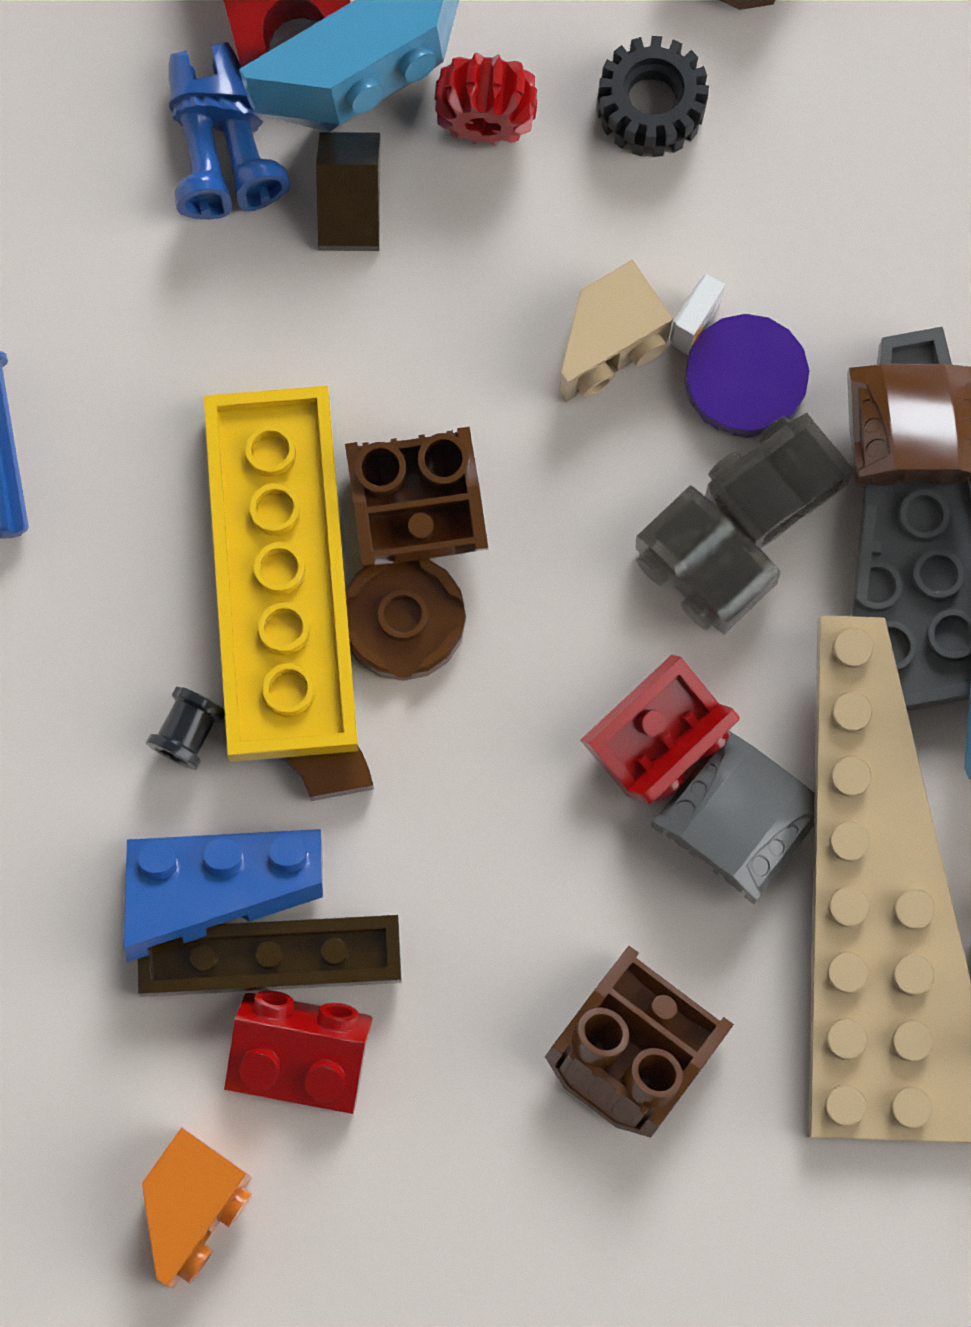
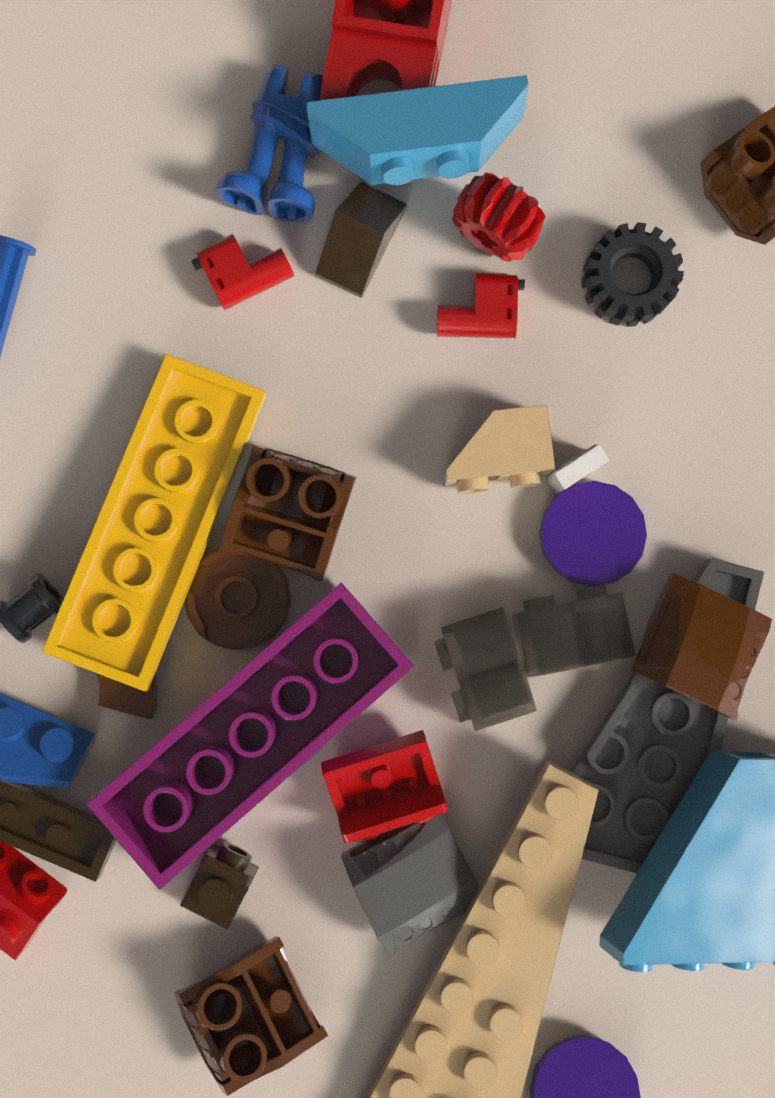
camera: 25 degrees right, 10 degrees up
(237, 288) = (234, 277): none -> red piece
(493, 736) = (250, 735): none -> magenta brick
(524, 197) = (492, 313): none -> red piece
(536, 923) = (220, 884): none -> dark brown bracket

